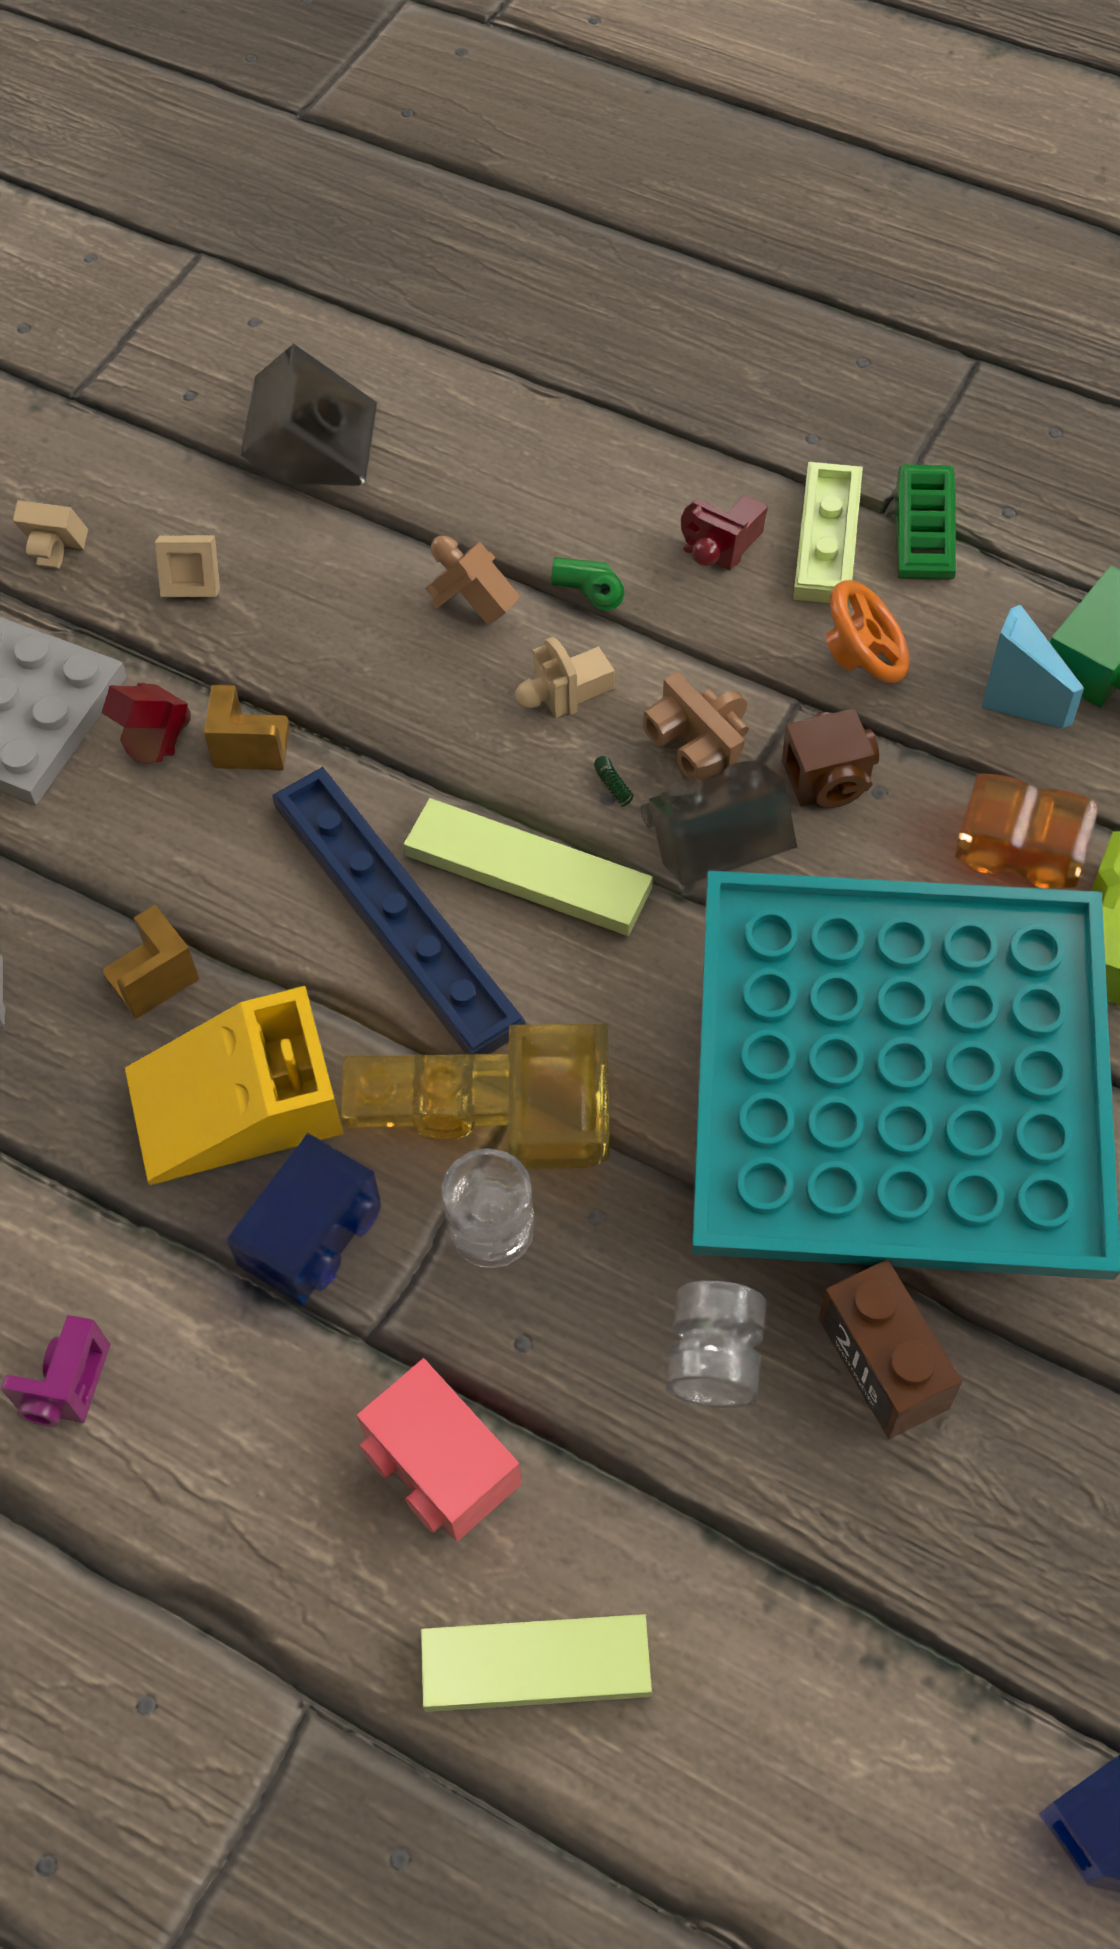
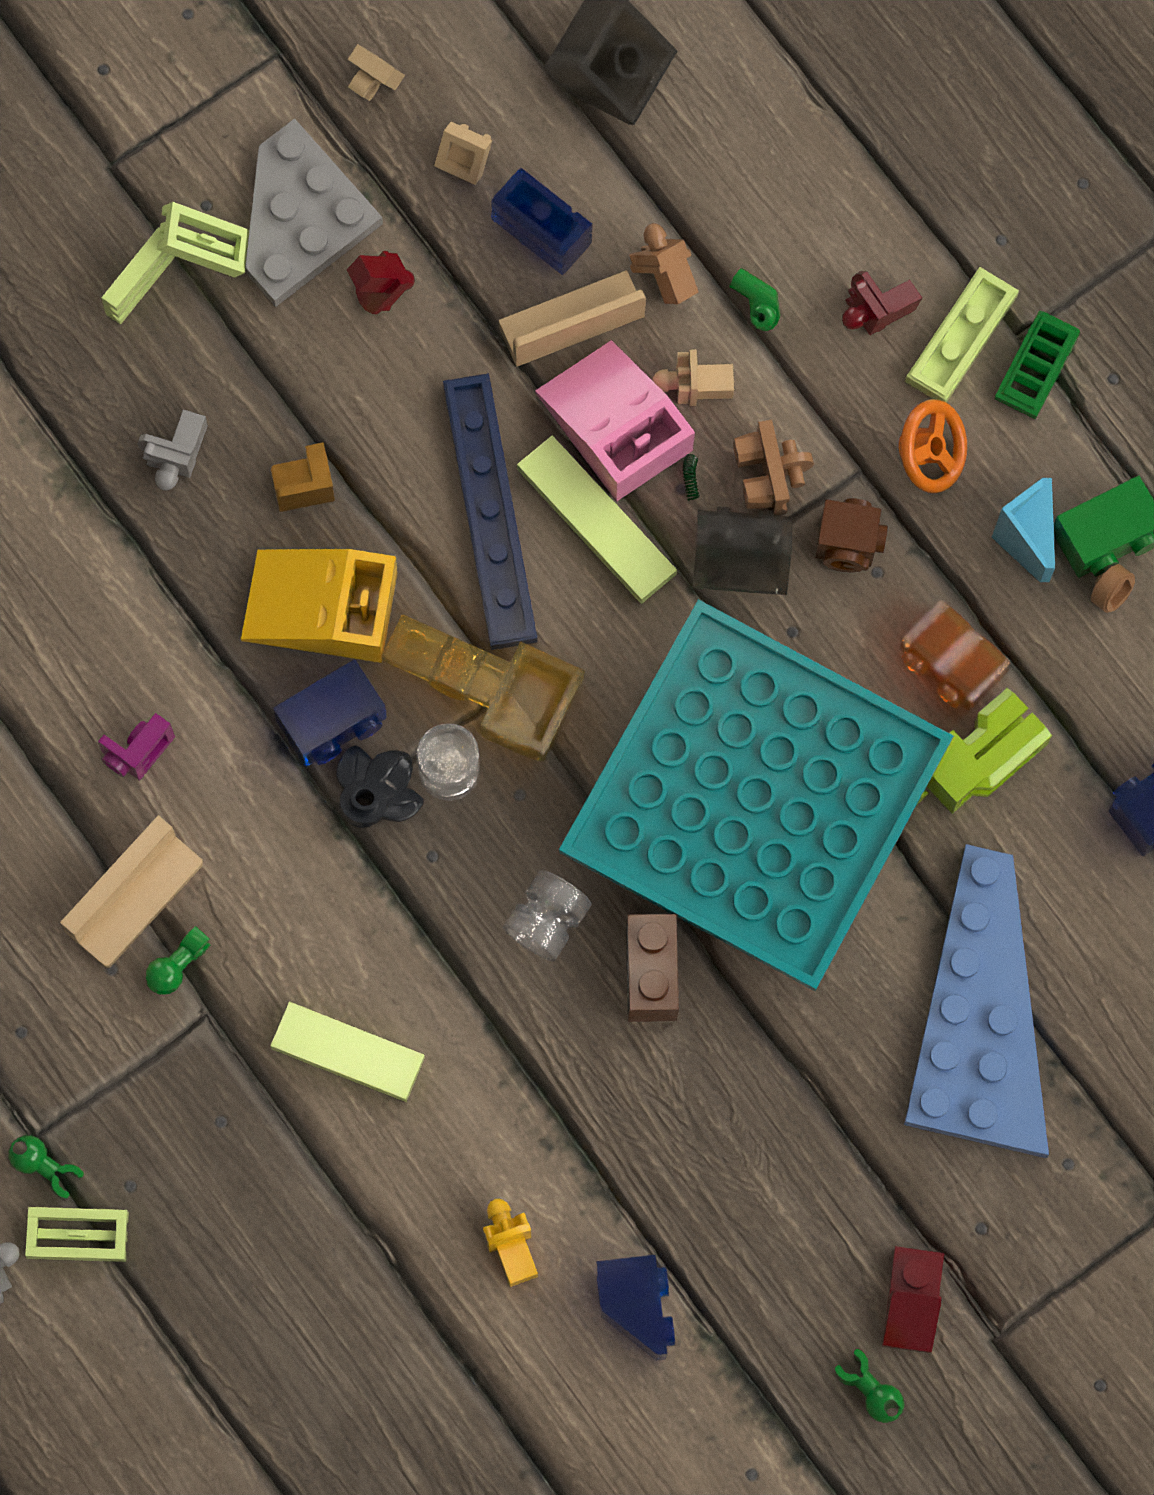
camera: 20 degrees right, 15 degrees up
(129, 1582) = (131, 893): none -> tan panel
(227, 1672) = (165, 974): none -> green arm
(243, 739) = (445, 321): pearl gold panel -> none
(309, 589) = (541, 221): none -> clear blue brick
(393, 677) = (572, 318): none -> tan panel
(412, 1279) = (379, 781): none -> black plate
(438, 1451) = (346, 902): coral brick -> none
(502, 749) = (617, 419): none -> bright pink slope
(906, 1836) = (509, 1239): none -> yellow piece

